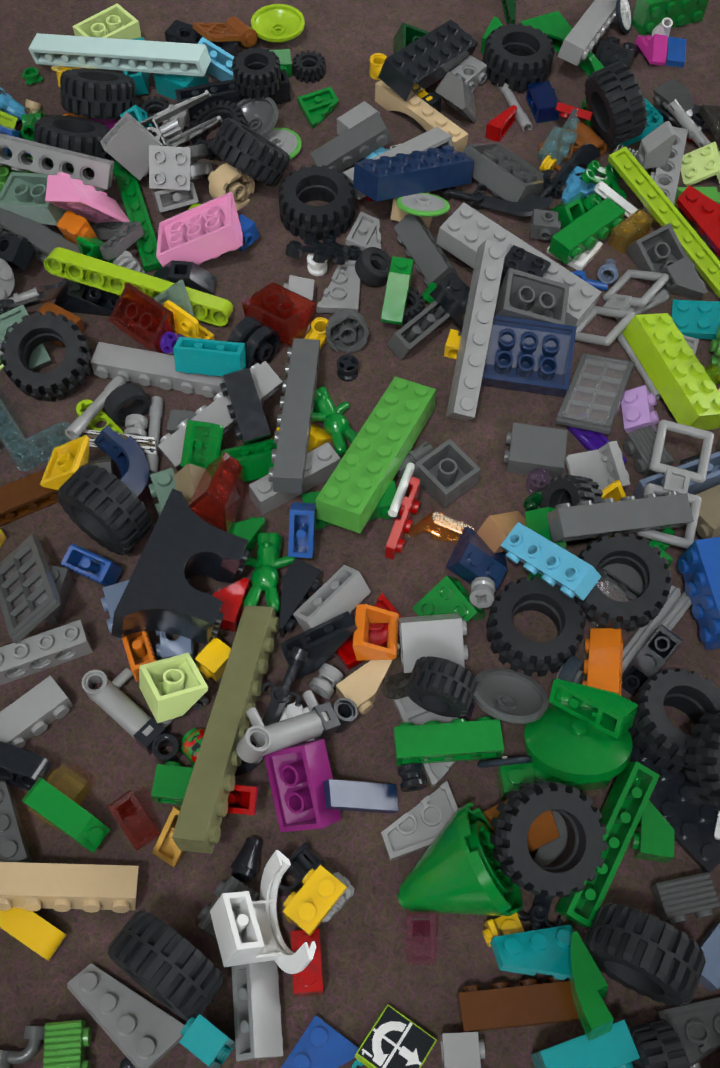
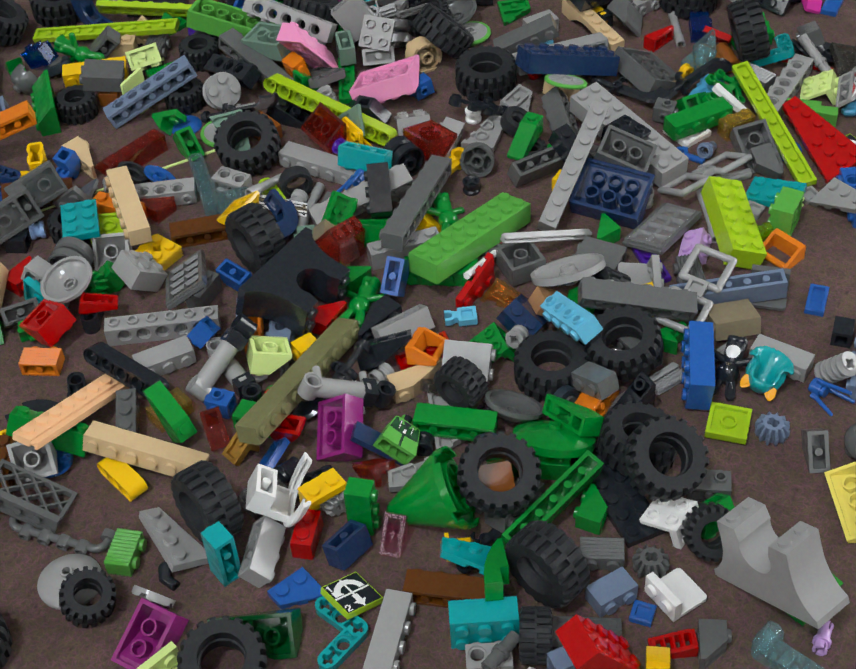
camera: 20 degrees right, 15 degrees down
(38, 413) = (229, 179): none -> light grey brick
(73, 666) = (203, 331): none -> blue brick
(121, 682) = (232, 341): none -> light grey piece
(127, 773) = (224, 399): none -> blue brick
(132, 191) = (345, 47): none -> sand green brick
(207, 388) = (354, 180): none -> blue plant
(223, 850) = (274, 452): none -> blue tile
(244, 284) = (405, 120): none -> light grey bracket
(362, 834) = (373, 469): none -> clear red slope
(367, 970) = (347, 545): none -> dark blue brick
(375, 912) = (362, 503): none -> green brick
(385, 785) = (399, 439): none -> bright green torso
(400, 565) = (463, 316): none -> medium azure plate
(468, 434) = (544, 236): none -> light grey axle
(517, 484) = (568, 270): none -> light grey dish
(532, 406) = (608, 230): none -> green slope
(606, 647) = (595, 380): none -> dark grey brick
(656, 146) = (774, 65): light grey slope -> none

